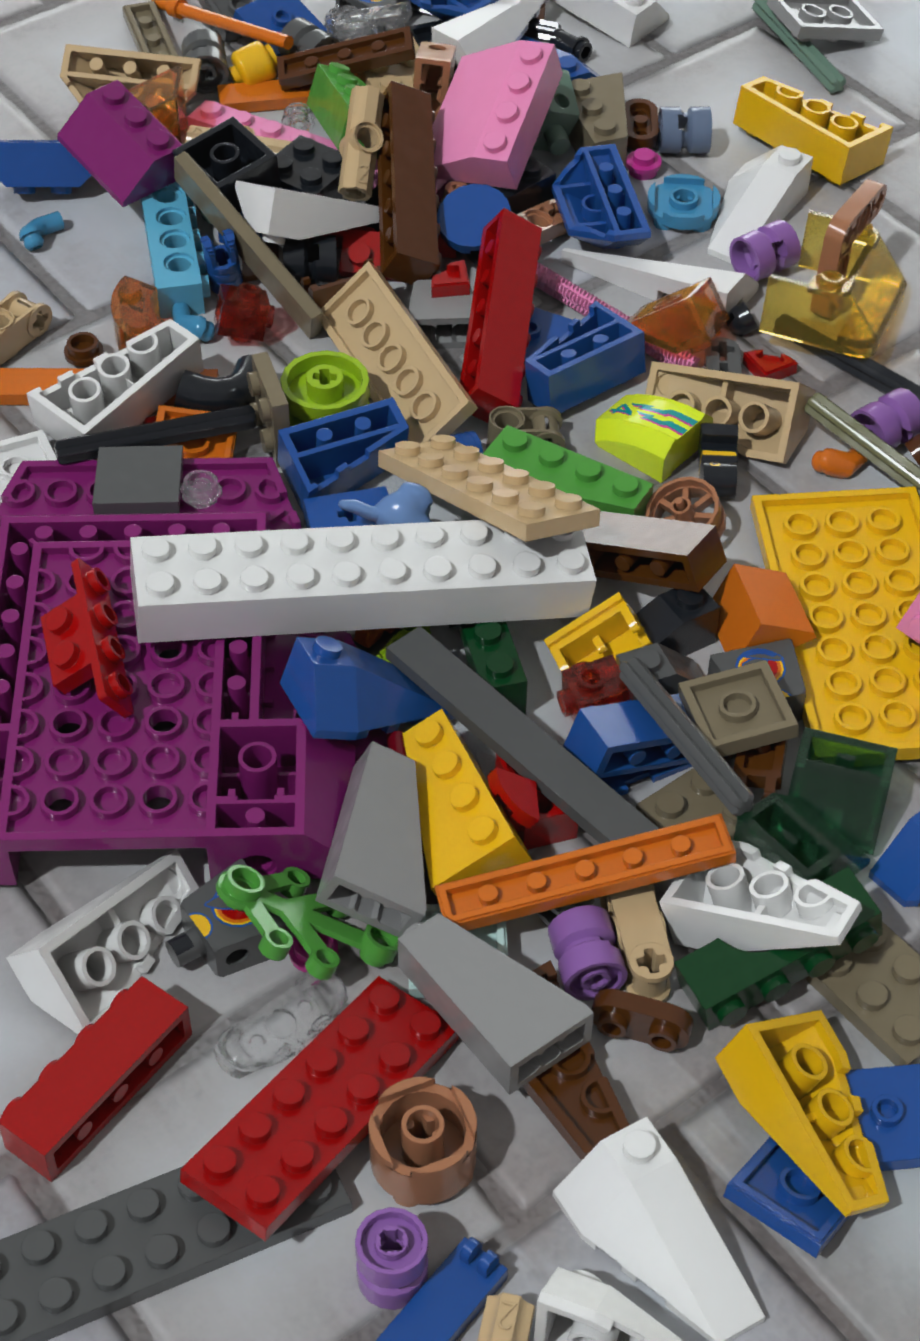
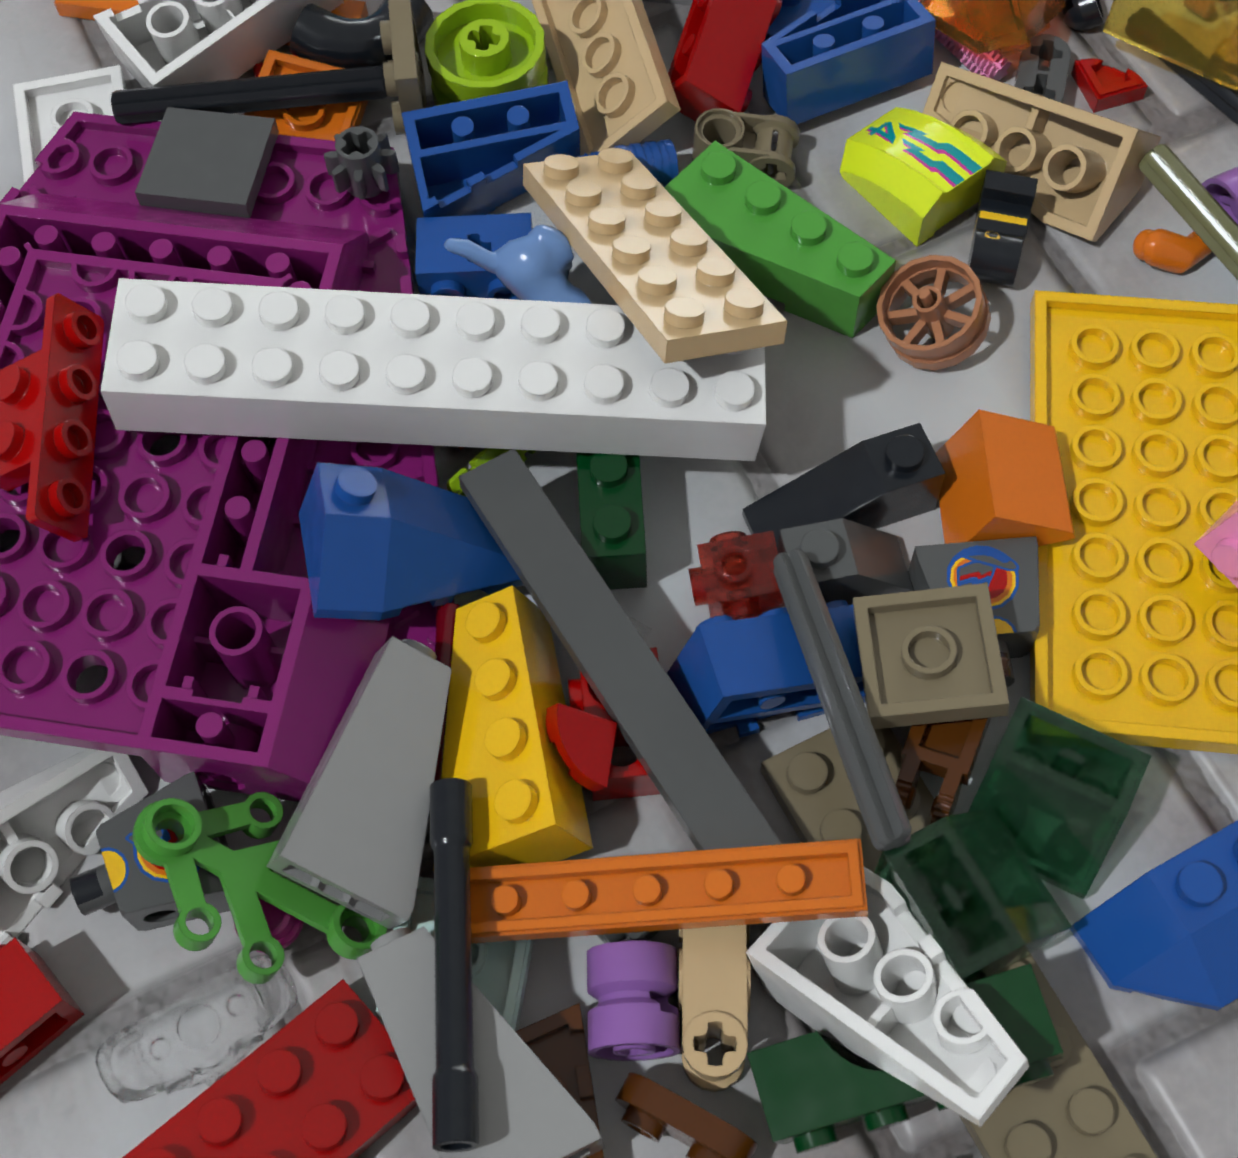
camera: 15 degrees right, 15 degrees up
(200, 489) = (281, 187): clear plate -> none
(257, 465) = (361, 162): none -> dark grey gear
(488, 986) = (455, 1079): none -> black piece
(600, 632) = (766, 493): yellow hinge -> none
(654, 551) = (864, 368): reddish brown brick -> none

